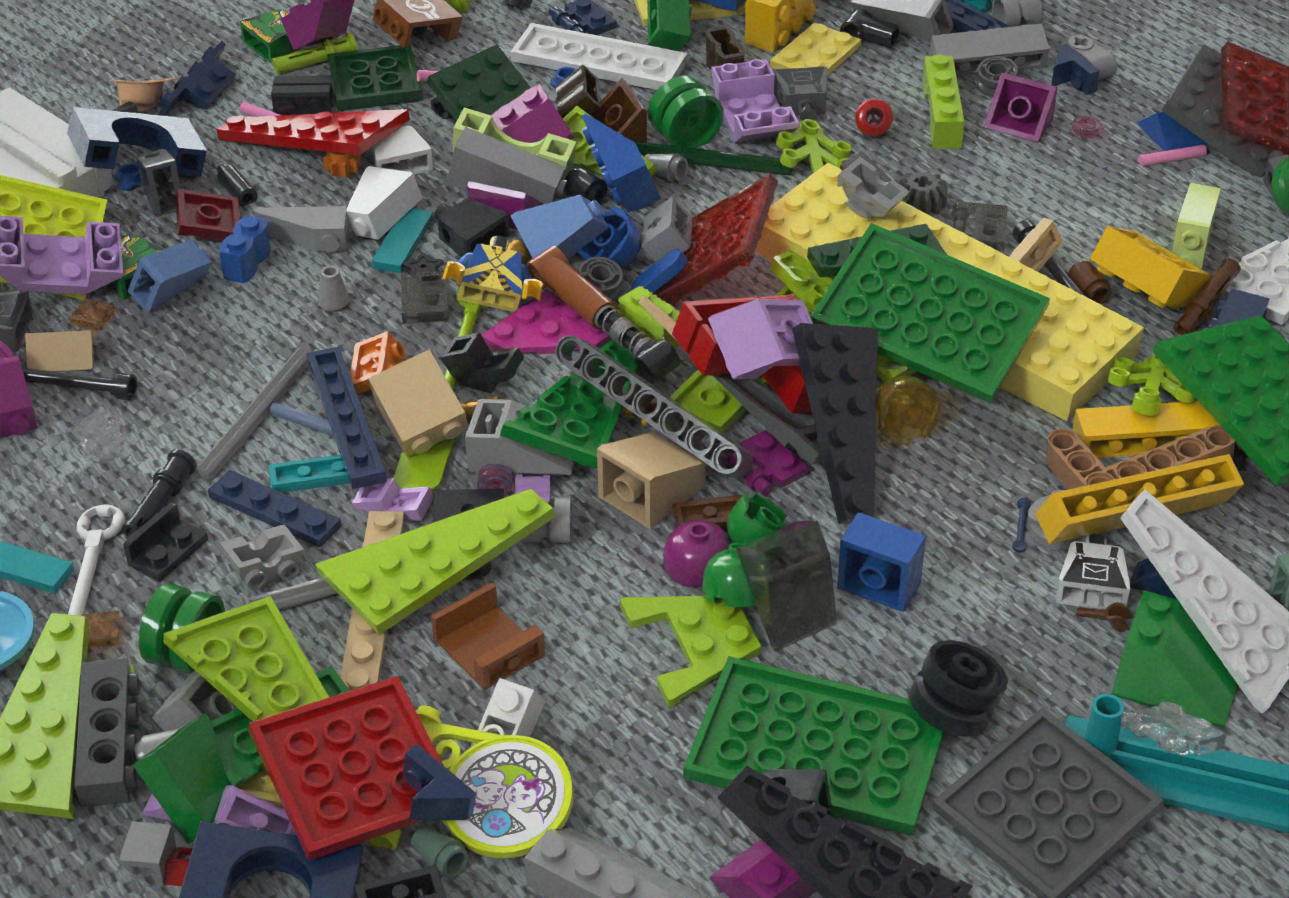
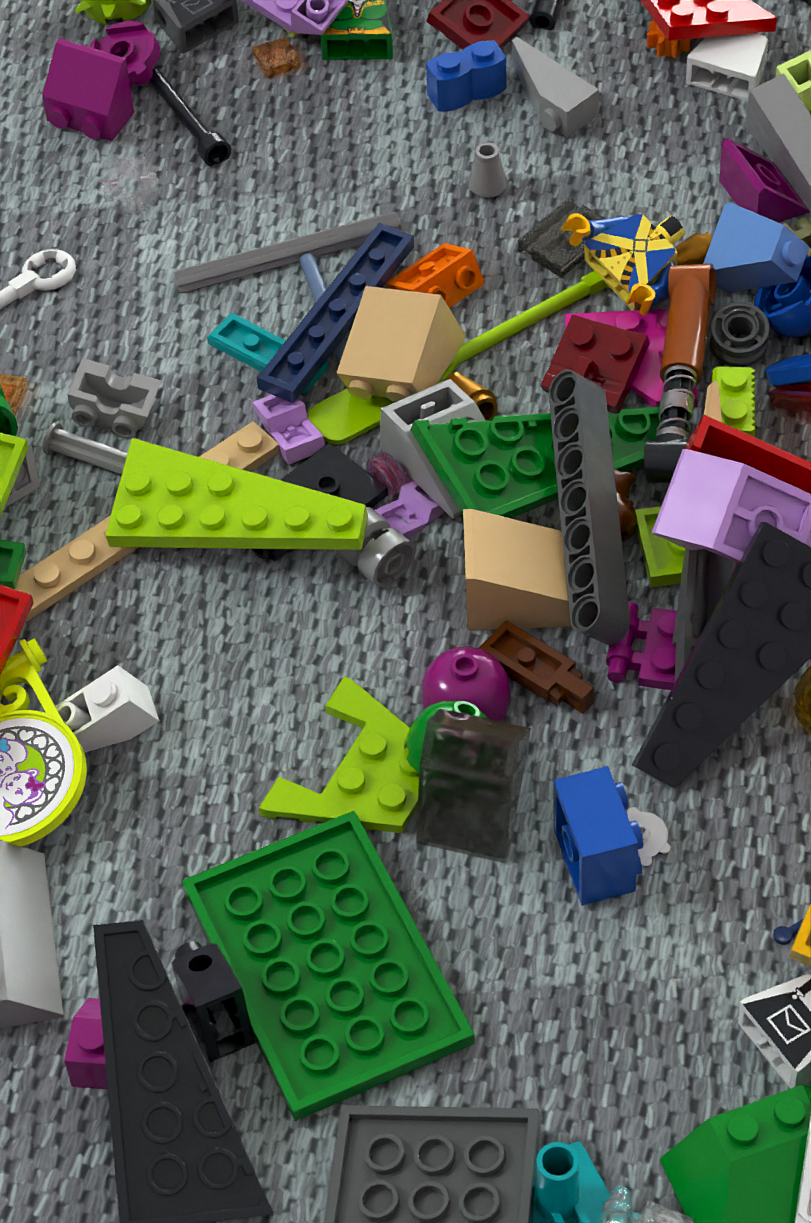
camera: 50 degrees right, 10 degrees up
(60, 350) = (208, 76): tan panel -> none
(163, 543) = (65, 325): black bracket -> none
(165, 483) = (134, 269): black pin -> none
(168, 273) = (369, 56): medium blue slope -> none
(274, 508) = (189, 359): dark blue plate -> none
(381, 201) = (641, 105): white slope -> none
(402, 240) = (626, 161): teal tile -> none
(423, 260) = (613, 197): black plate -> none
(470, 225) = (695, 188): black torso -> none
(476, 366) = (514, 341): black brick -> none
(485, 638) = (193, 620): dark orange panel -> none
(537, 340) = (601, 354): none -> dark red hinge
(754, 518) = (545, 702): green cylinder -> none
(958, 688) = (492, 1020): black wheel -> none
(1113, 613) = (763, 1081): reddish brown hand -> none

